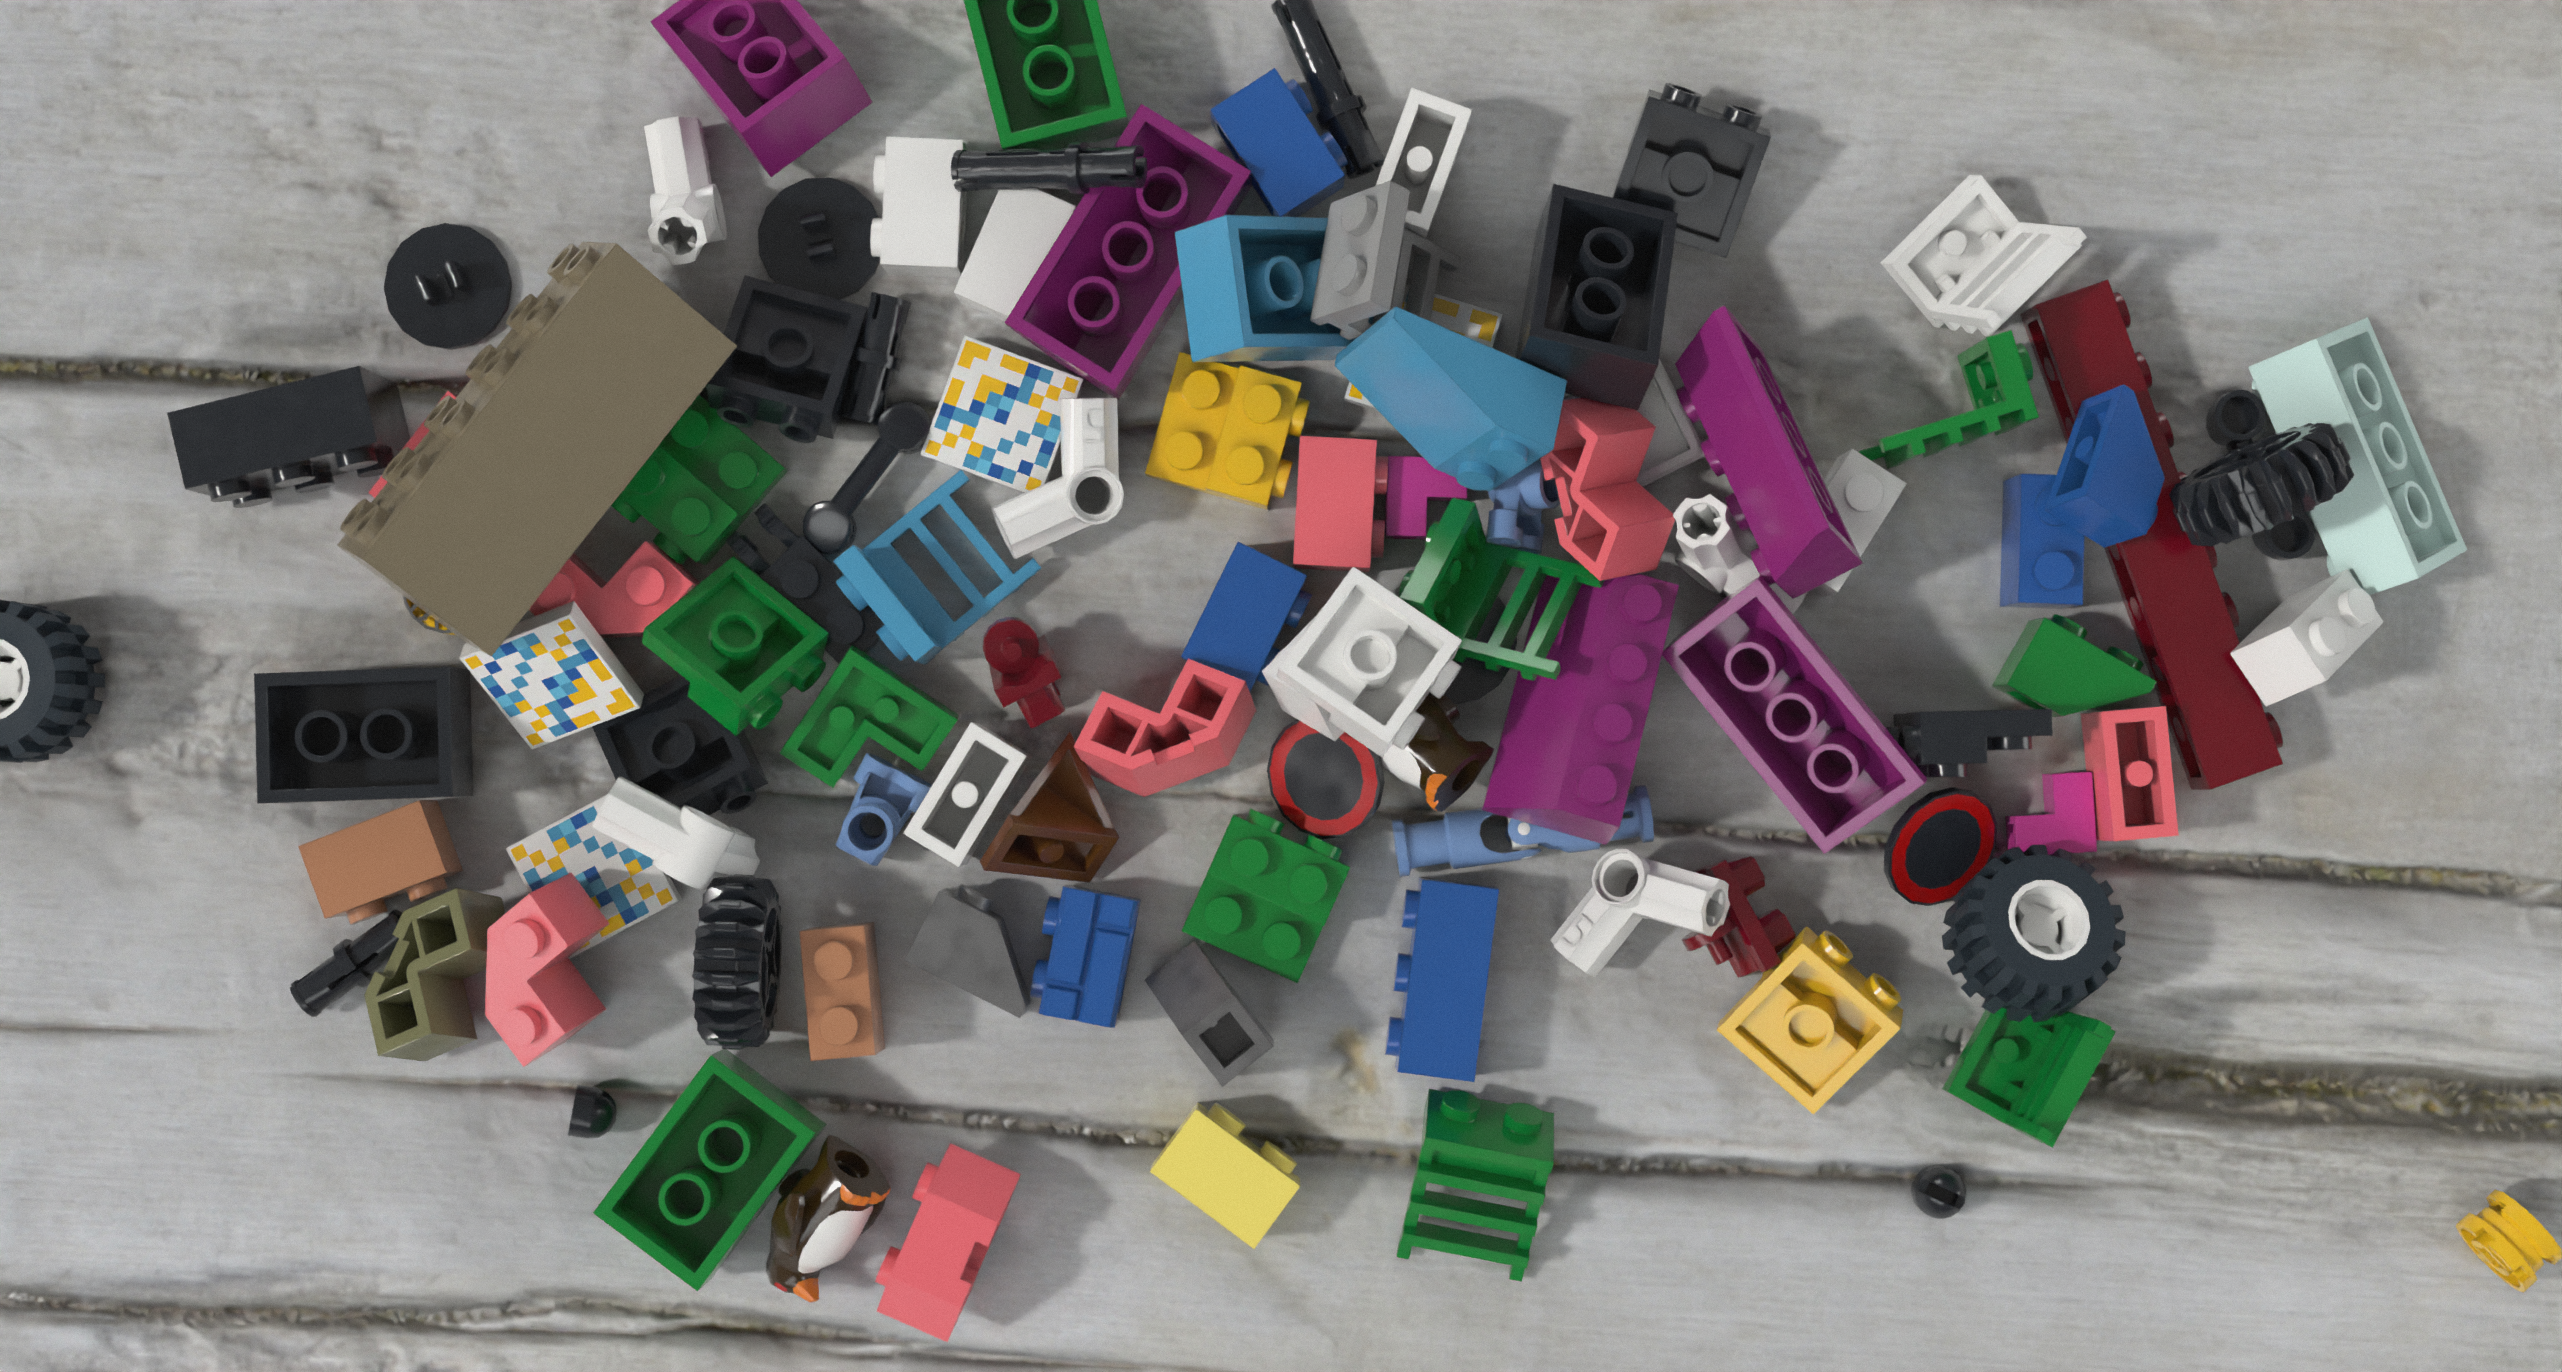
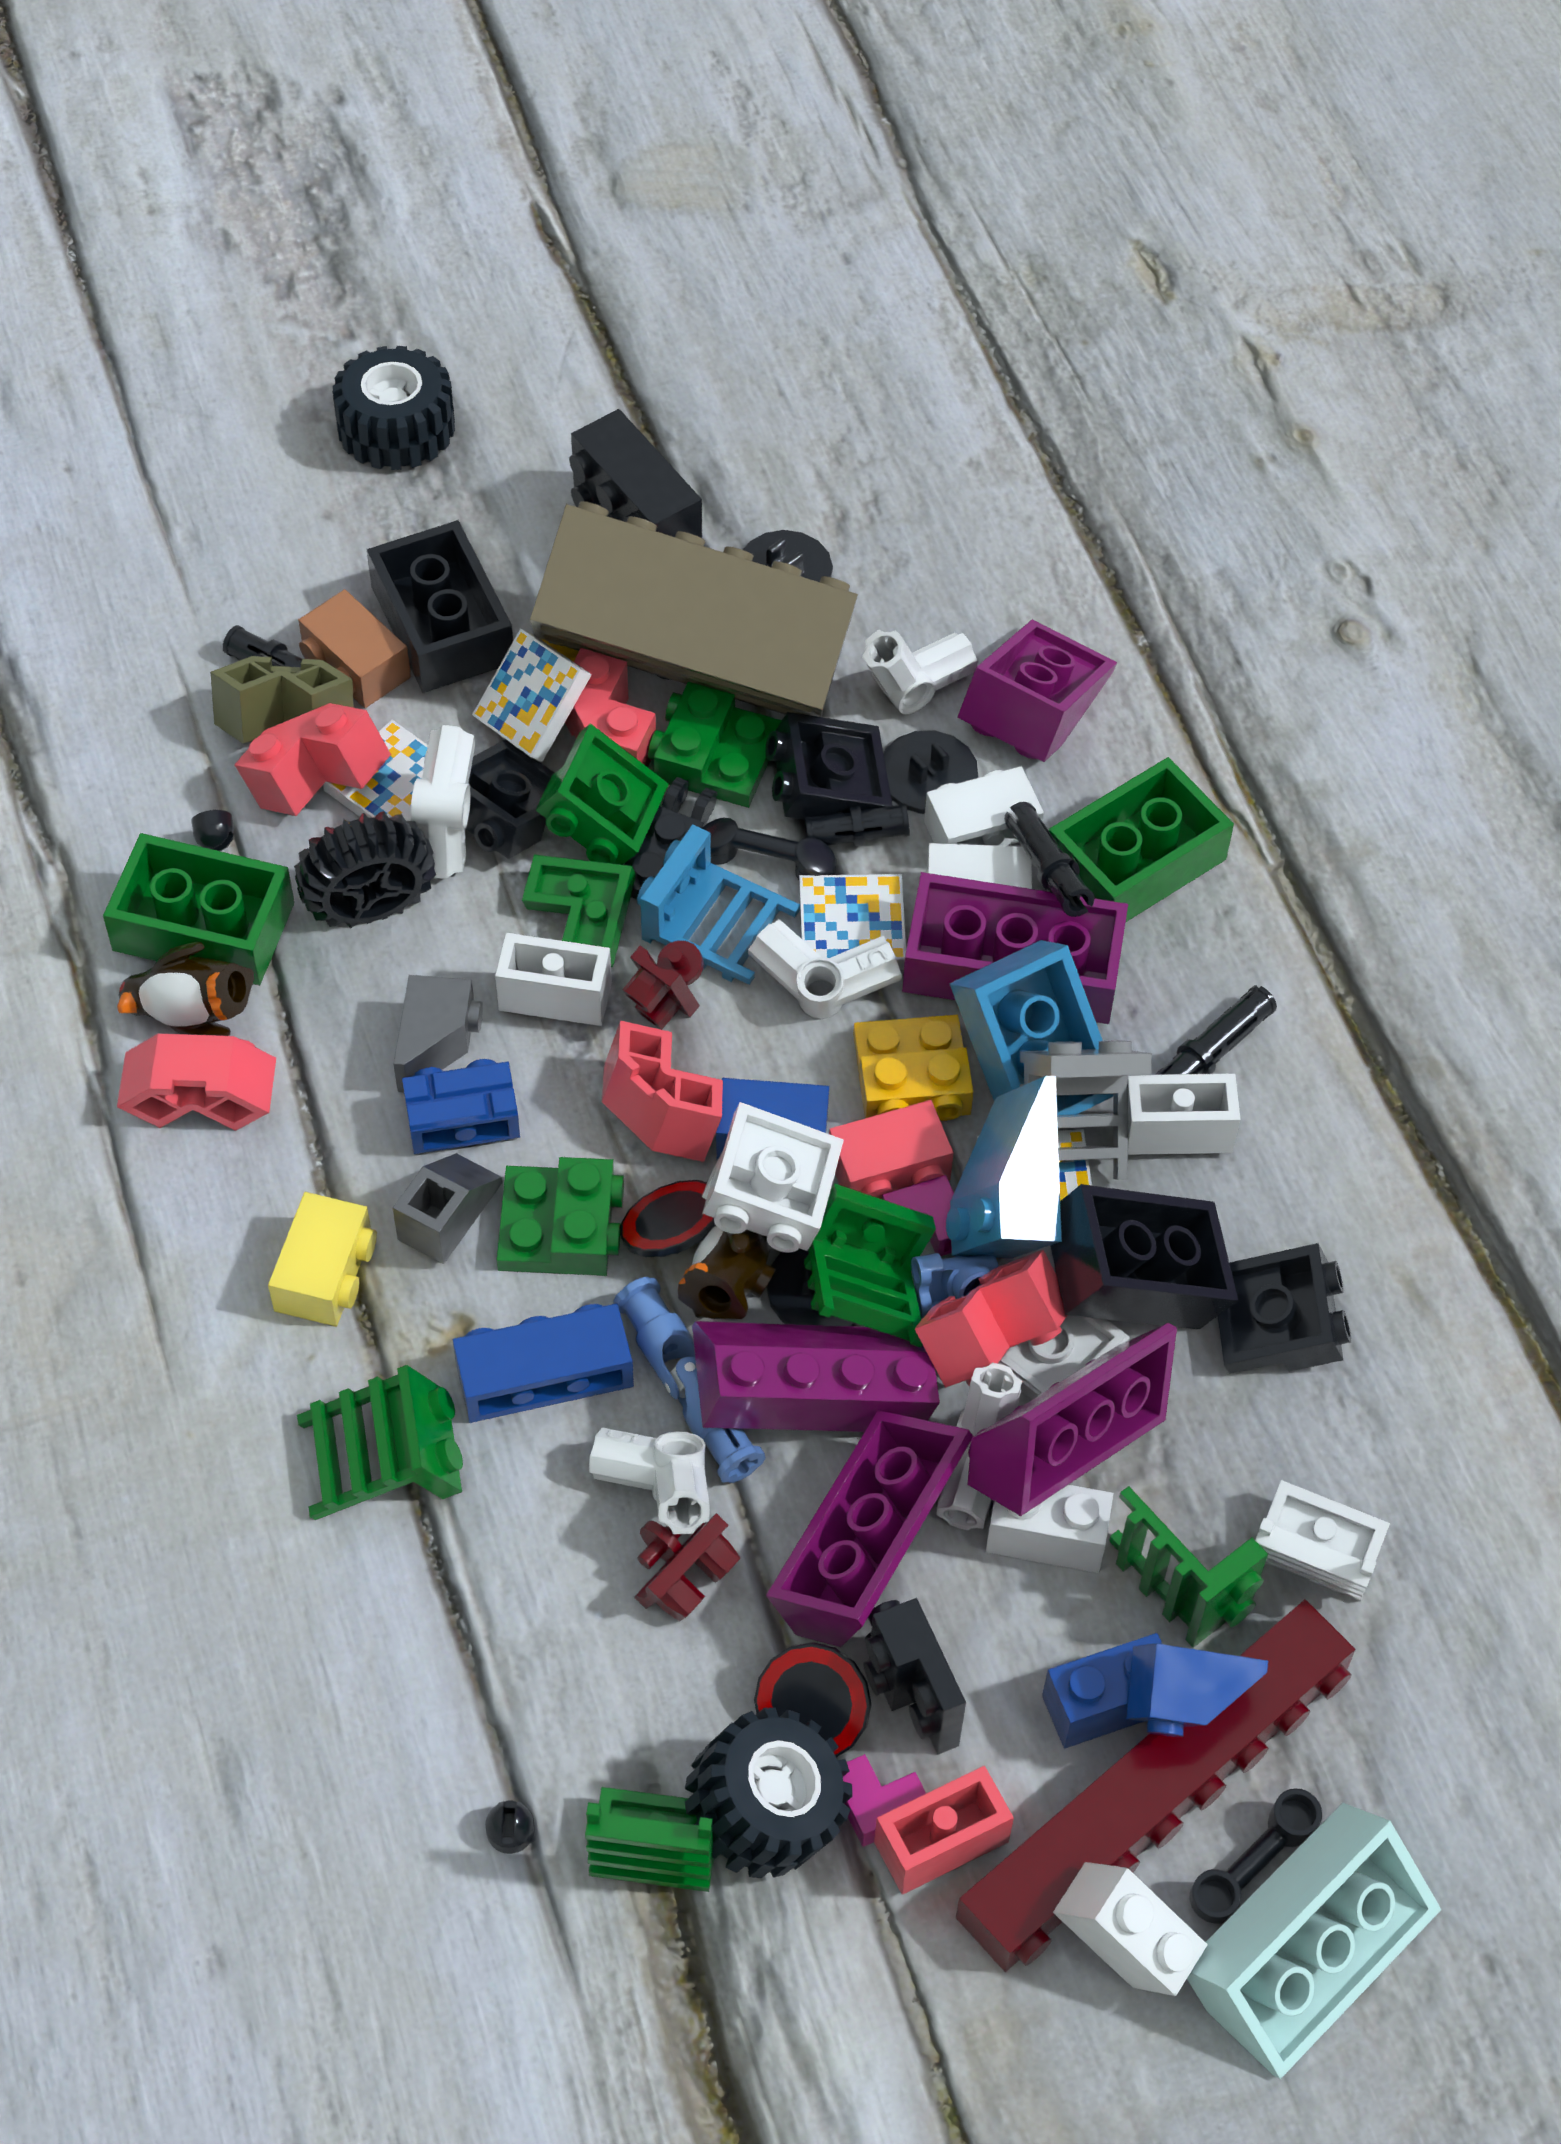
camera: 70 degrees right, 30 degrees down
(842, 991) = (368, 952): nougat brick -> none
(884, 792) = (503, 918): medium blue plate -> none
(1056, 825) = (553, 1039): reddish brown slope -> none
(1275, 140) = (1152, 1010): blue brick -> none
(1813, 1018) = (623, 1654): yellow plate -> none
(2065, 673) = (1010, 1742): green slope -> none
(2261, 484) = (1241, 1813): black gear -> none

